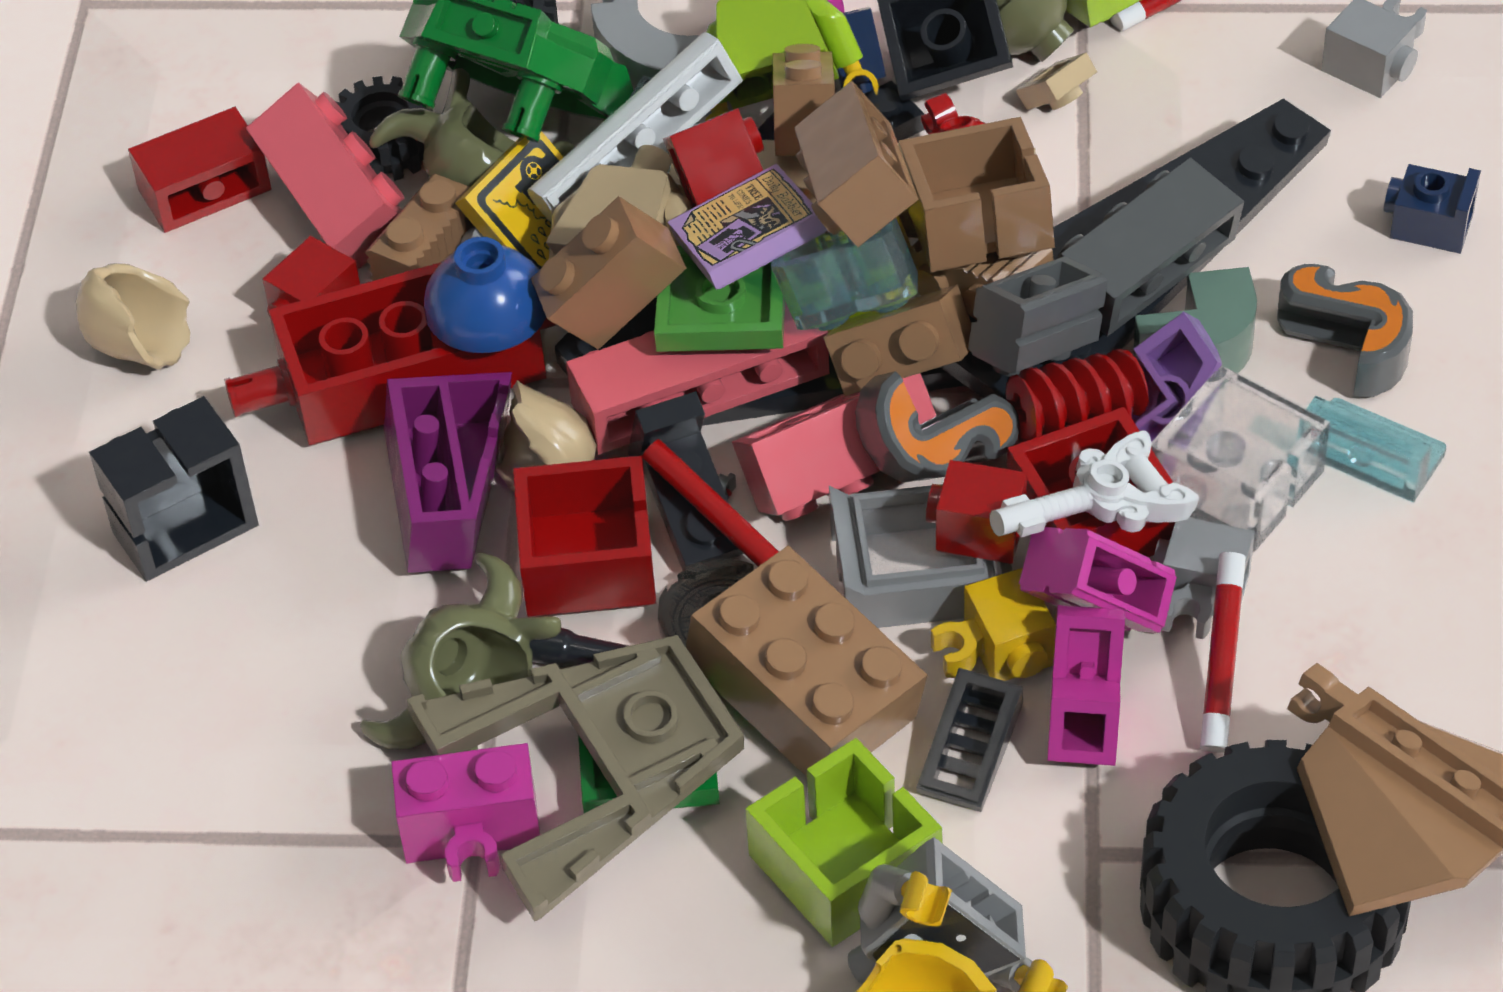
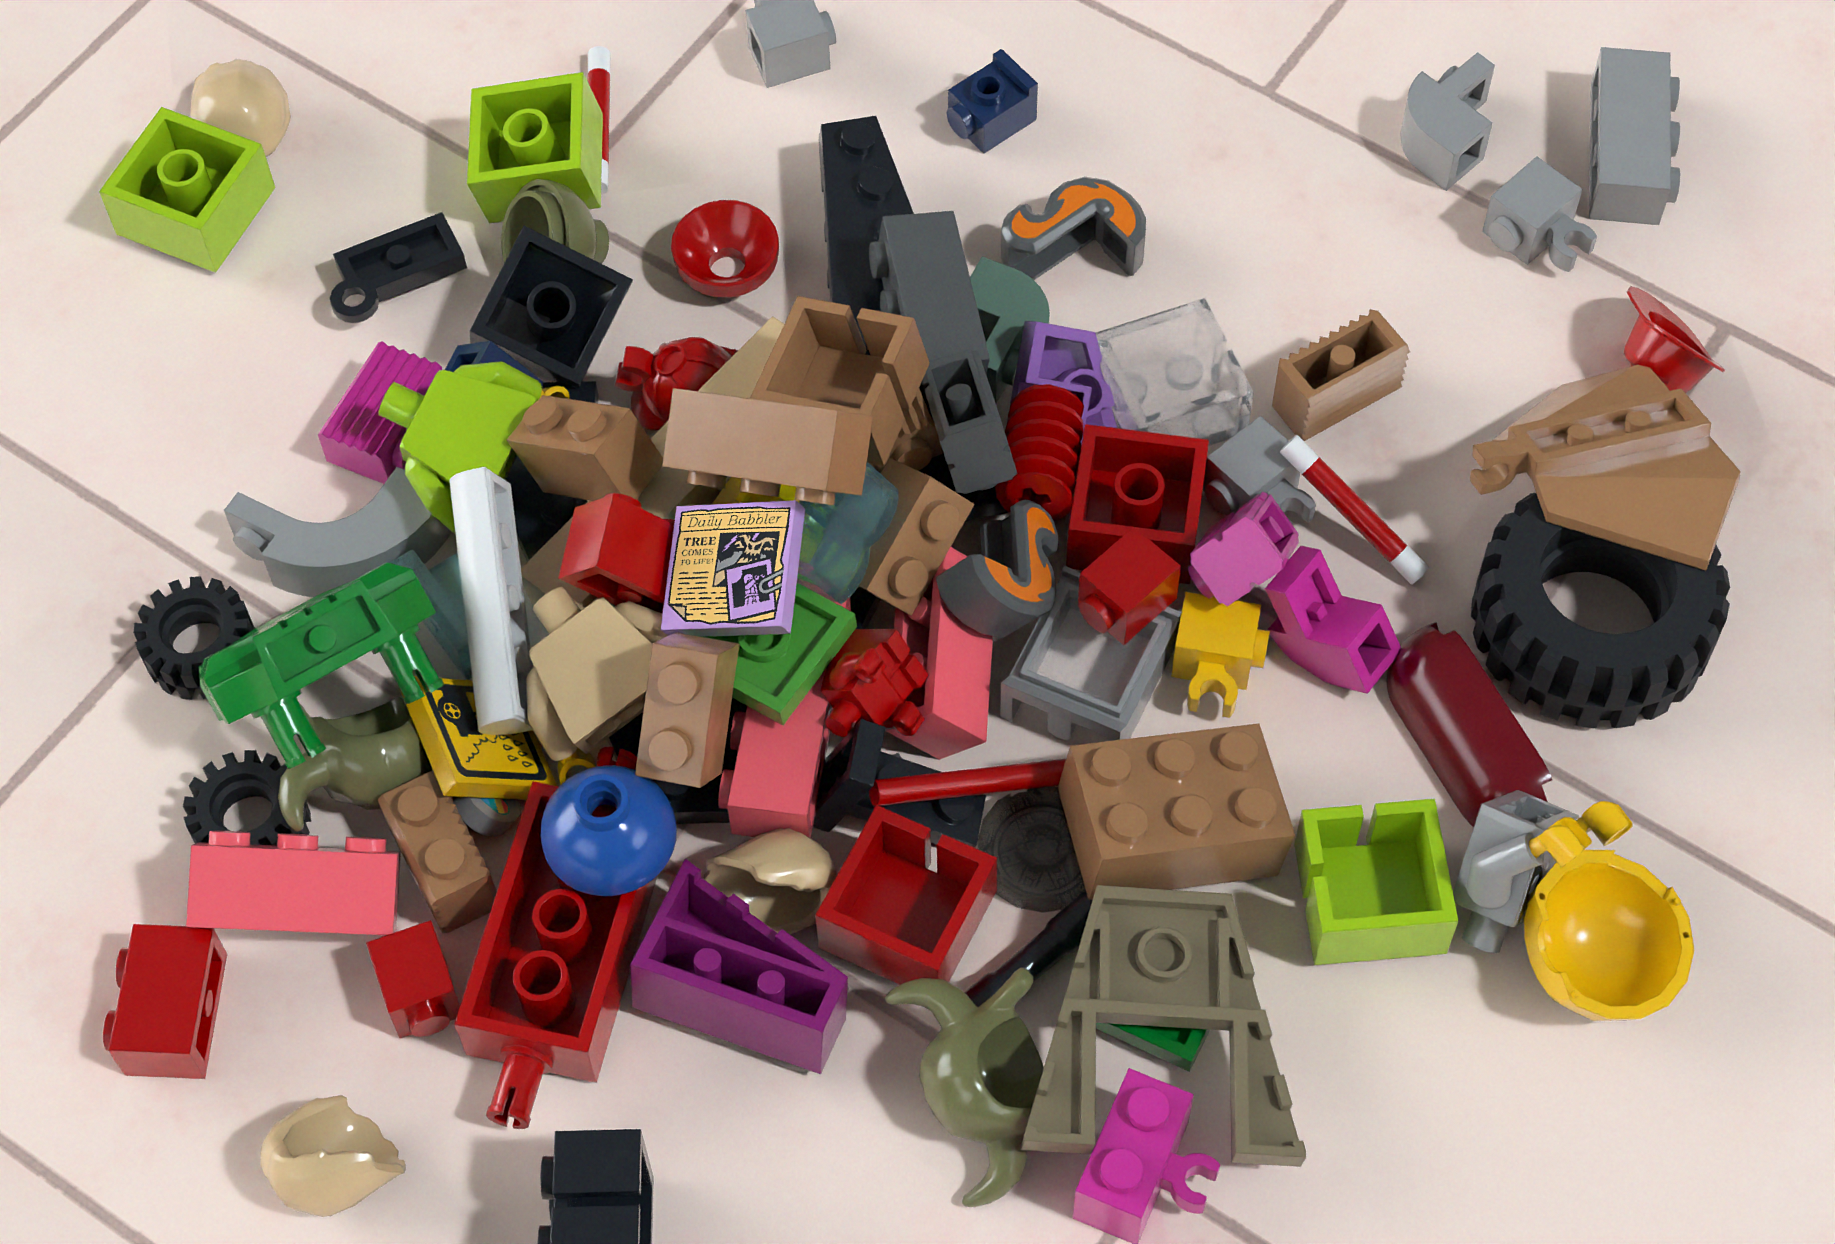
camera: 60 degrees left, 10 degrees up
(743, 390) = (872, 681): none -> red piece
(987, 694) = (1310, 708): black slope -> none
(1057, 83) = (648, 262): tan plate -> none
(1078, 849) = (1462, 722): none -> dark red brick
(1104, 492) = (1186, 477): white piece -> none
(1115, 103) = (722, 231): none -> red piece
(1356, 571) = (1339, 375): none -> medium nougat brick
(1378, 448) = (1220, 277): clear light blue panel -> none

